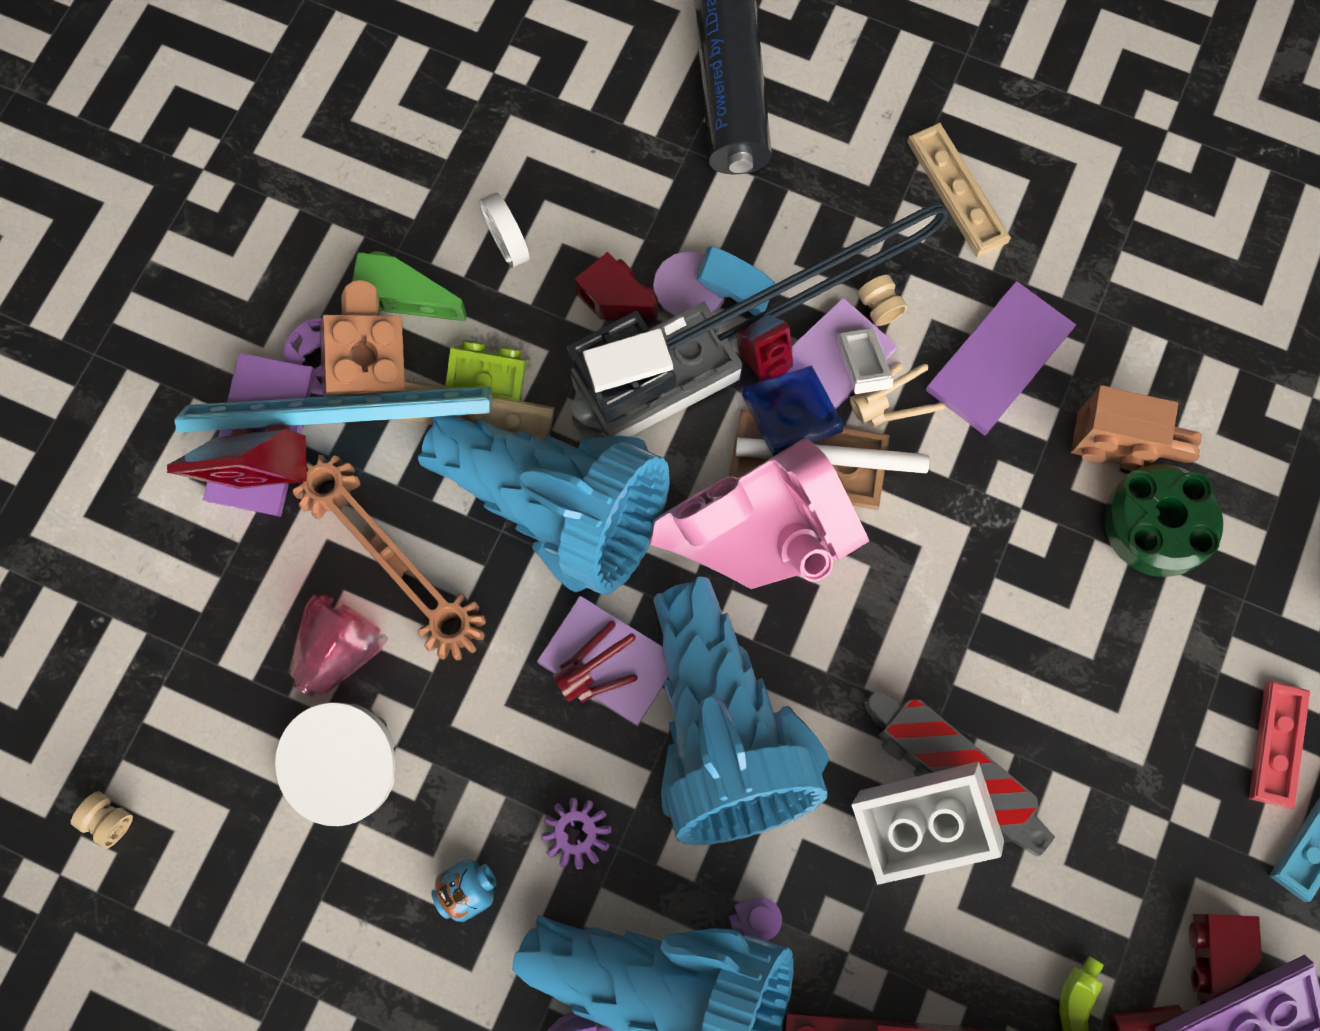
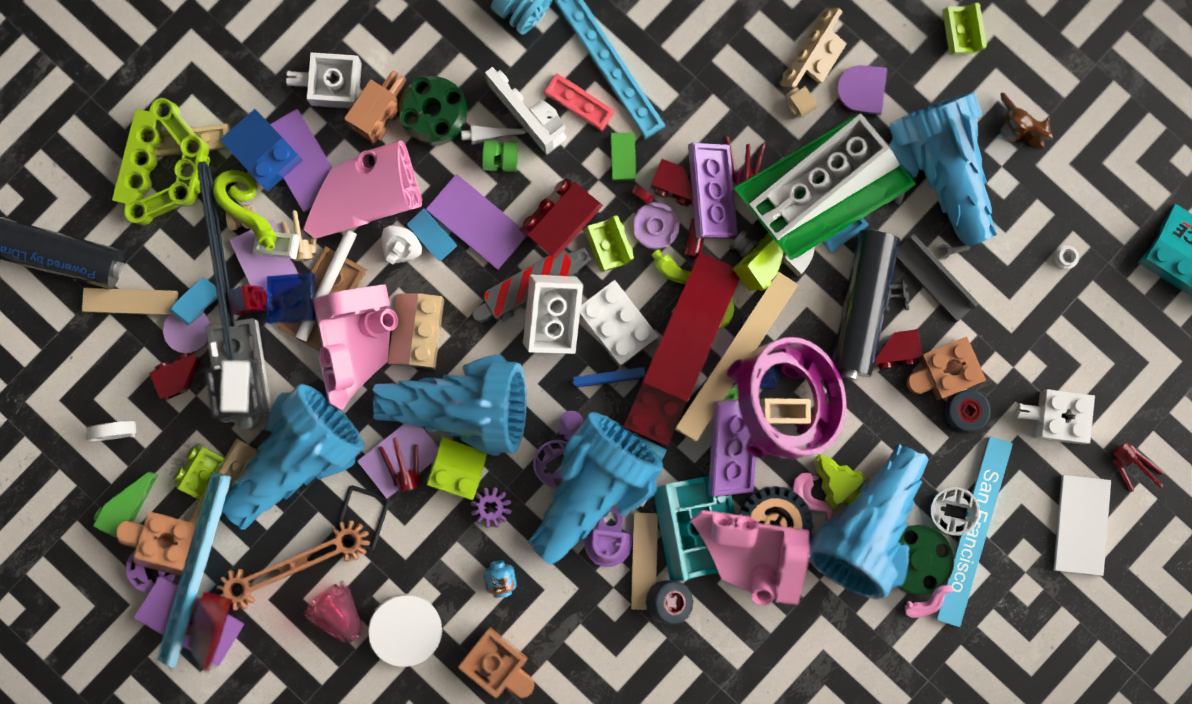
camera: 75 degrees left, 10 degrees up
(318, 939) = (497, 665): none -> nougat brick
(502, 665) = (381, 520): none -> black piece
(619, 755) = (456, 468): none -> lime slope
(694, 901) = (550, 454): none -> medium lavender piece
(701, 193) = (128, 301): none -> tan tile
(815, 616) = (418, 331): none -> tan slope
(859, 958) = (609, 377): none -> blue tile
(885, 322) = (260, 226): none -> lime plant
(928, 128) = (136, 146): none -> lime brick
(937, 542) = (399, 244): none -> white piece
(953, 940) = (617, 323): none -> white brick
(972, 586) = (432, 235): none -> dark azure slope
(993, 296) = (261, 149): none -> blue slope
(997, 462) = (363, 192): none -> bright pink panel
(1020, 651) = (477, 222): none -> medium lavender tile
(1077, 878) = (609, 244): none -> lime bracket
(1089, 779) = (560, 217): none -> dark red slope
(1138, 946) = (662, 227): none -> lavender tile
(1143, 351) = (320, 75): none -> white brick
(1146, 661) = (508, 153): none -> bright green wheel
(1161, 609) = (479, 134): none -> white piece
(1181, 903) = (642, 194): none -> dark red tile
(1221, 685) = (544, 131): none -> white plate
(1226, 849) = (623, 156): none -> bright green tile

